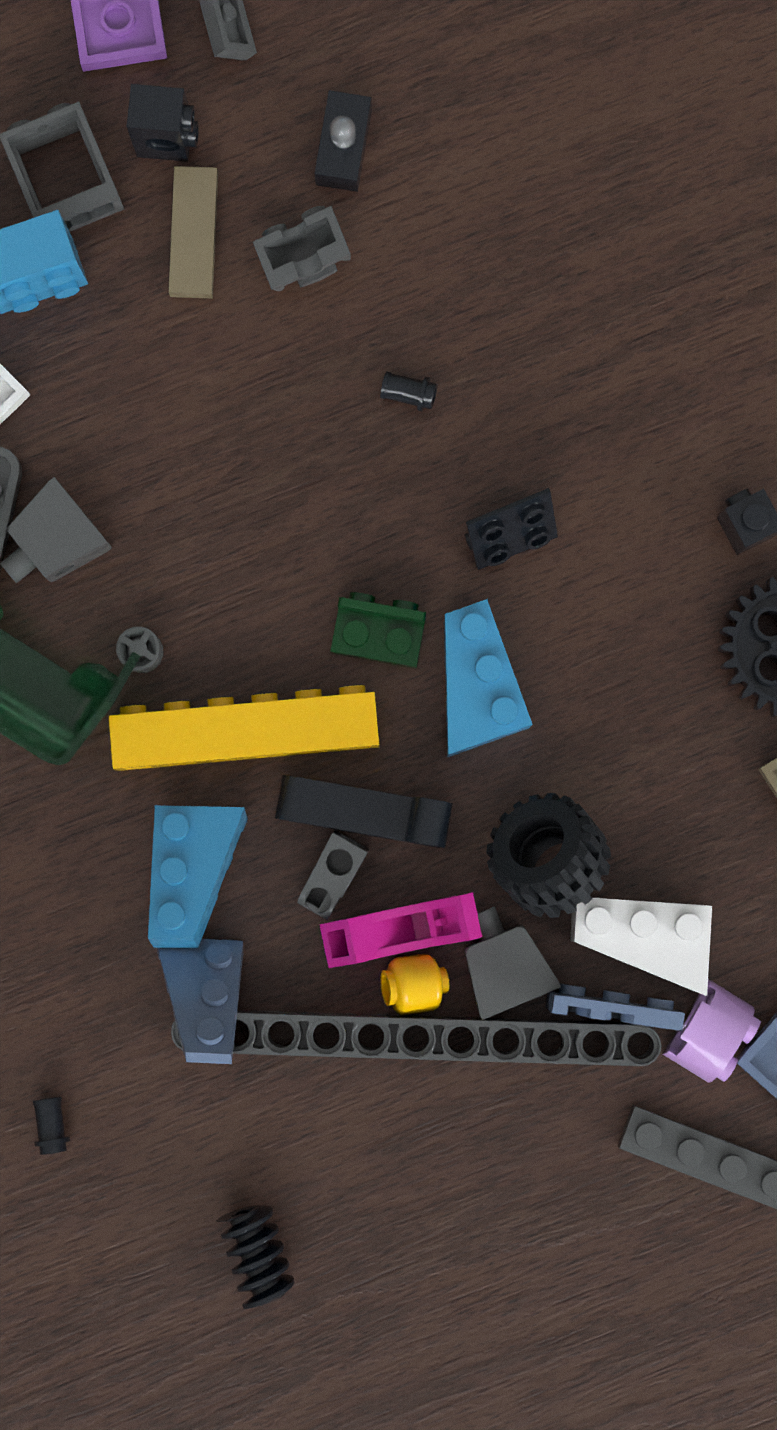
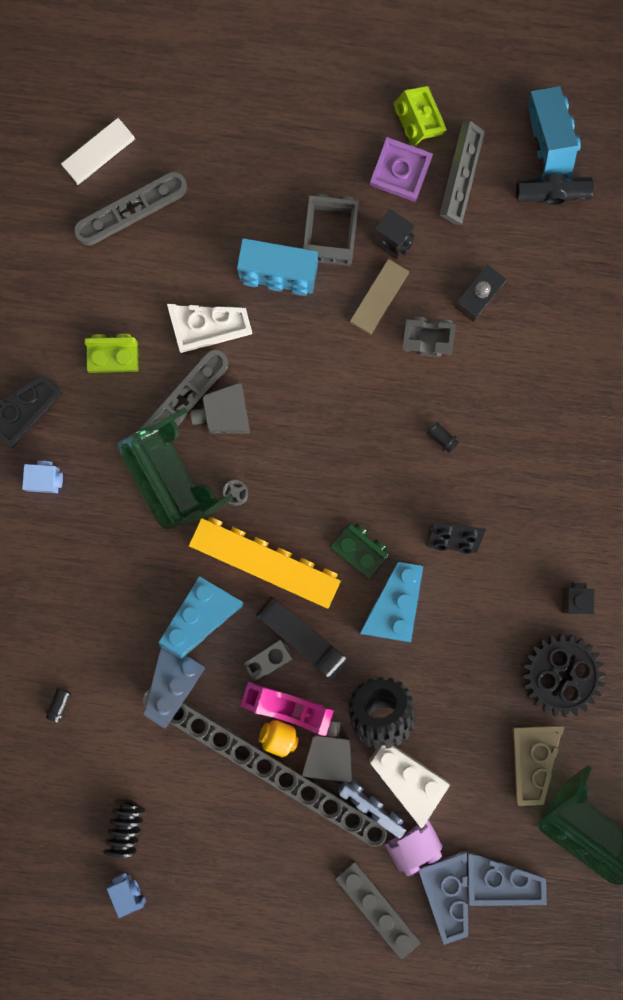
camera: 25 degrees right, 0 degrees up
(313, 1354) = (125, 895): none -> medium blue brick

